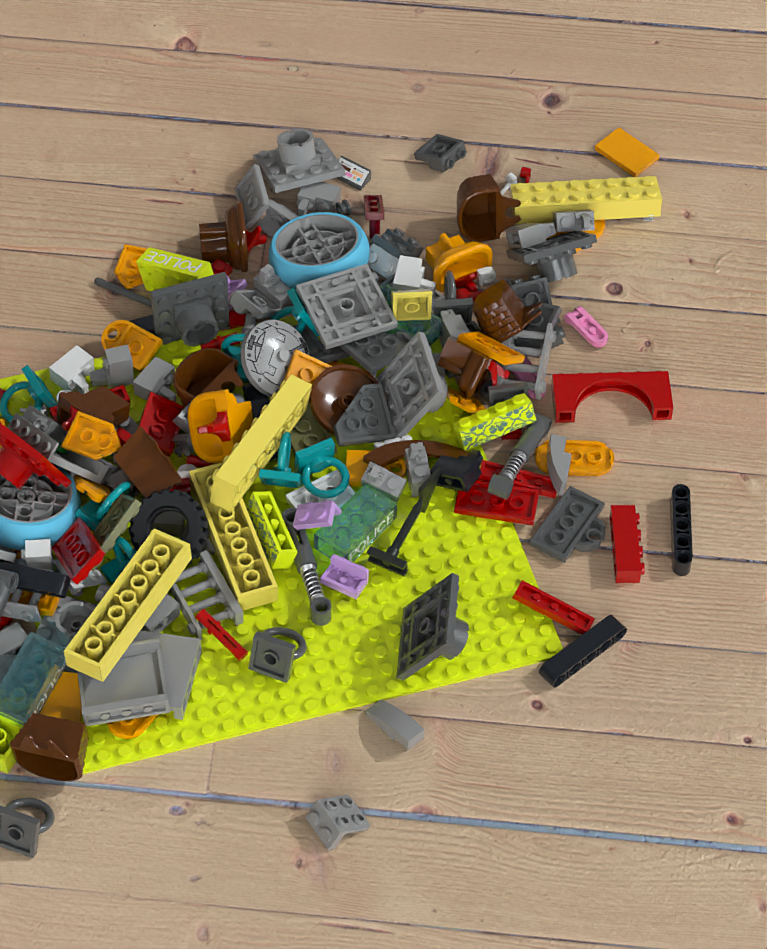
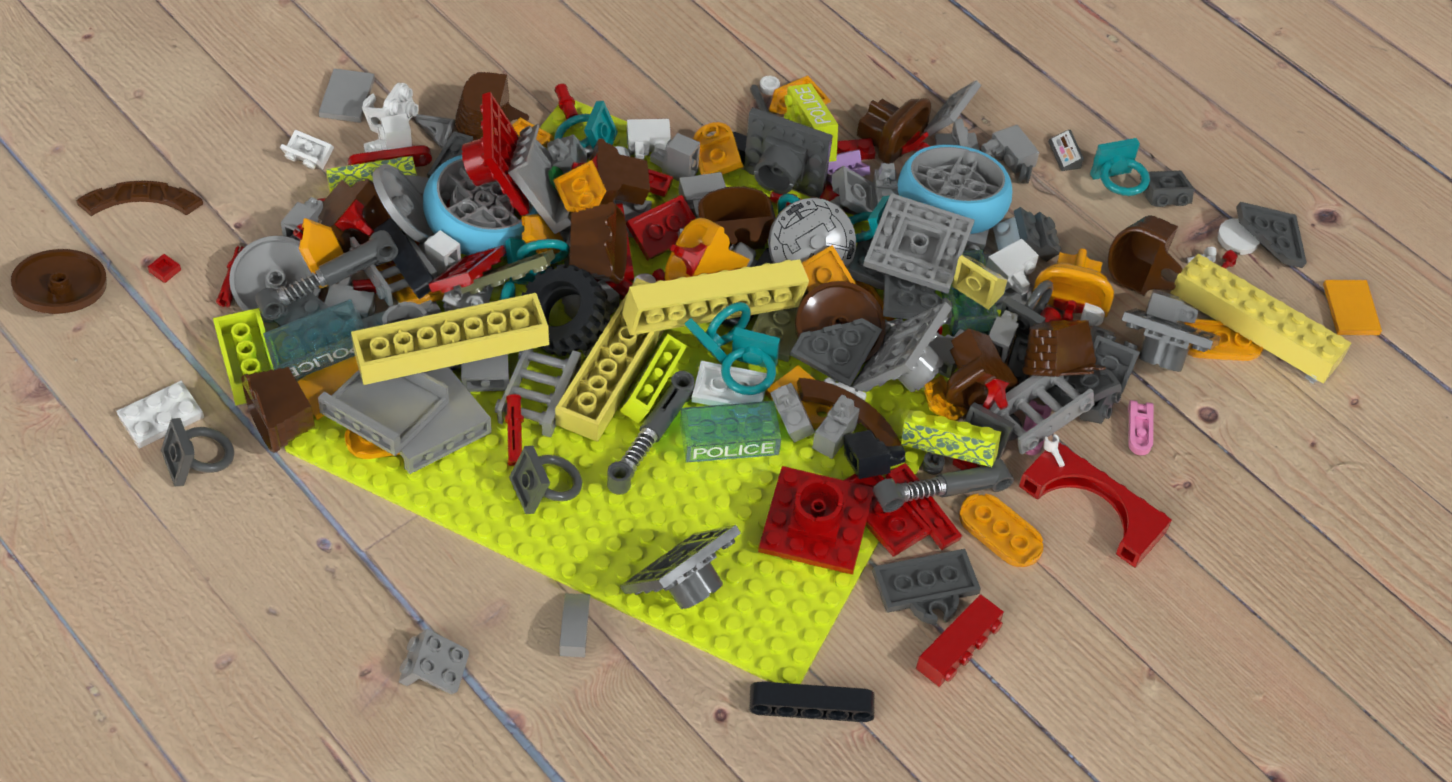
camera: 40 degrees right, 0 degrees up
(105, 270) = (769, 84): none -> white tile
(183, 444) = (660, 261): dark grey tile -> none
(298, 161) = (1024, 106): light grey piece -> none
(315, 514) = (696, 391): lavender bracket -> none
(345, 576) = (672, 466): lavender bracket -> none
(374, 213) = (1045, 191): dark red piece -> none
(389, 558) = (814, 451): pearl dark grey piece -> none
(394, 155) = (1119, 159): none -> teal tile
(468, 538) = (816, 520): none -> red piece
(491, 348) = (1011, 370): light orange tile -> none
(494, 452) = (930, 468): none -> dark grey bush
(515, 153) = (1236, 238): none -> white tile
(537, 134) = (1274, 230): none -> dark grey plate
(553, 608) = (825, 641): red plate -> none
(555, 380) = (1053, 447): none -> white hand
(558, 462) = (974, 518): light grey slope -> none
(573, 220) = (1224, 325): light grey hinge -> none
(681, 530) = (1023, 679): black beam -> none

